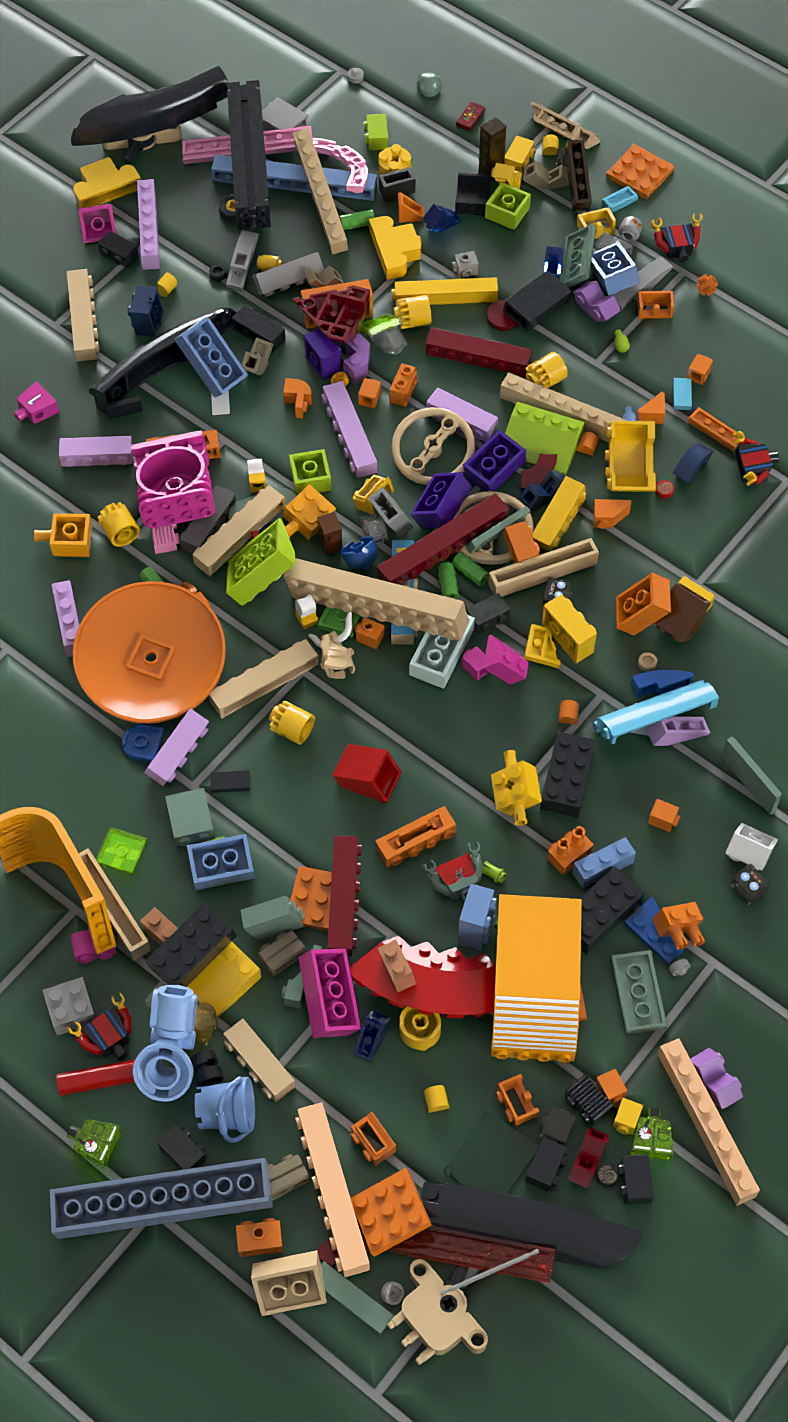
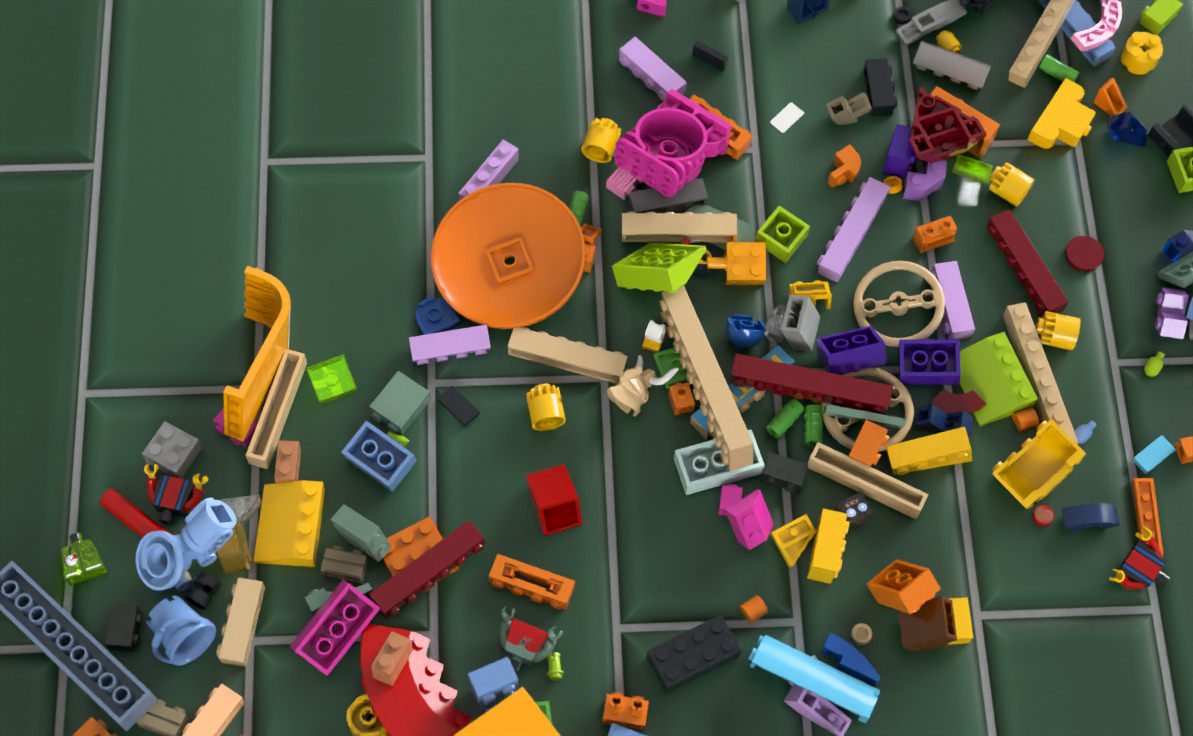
camera: 45 degrees right, 5 degrees up
(69, 535) = (559, 115): light orange brick -> none
(151, 360) = (781, 39): black slope -> none
(191, 947) = (281, 495): black brick -> none
(211, 357) = (809, 76): medium blue brick -> none
(256, 475) = (743, 198): leg -> none
(327, 277) = (975, 96): dark tan brick -> none
(329, 533) = (739, 294): reddish brown brick -> none
(369, 393) = (902, 216): orange brick -> none
(371, 1035) = (332, 688): clear blue slope -> none
(395, 182) = (1124, 69): pearl dark grey brick -> none
(449, 291) = (1061, 192): yellow brick -> none
(465, 264) = (1100, 184): light grey brick -> none
(516, 788) = (640, 623): yellow brick -> none
(536, 301) = (1123, 267): black brick -> none
(609, 512) = (974, 490): orange slope -> none
(653, 410) = (1110, 445): orange slope -> none

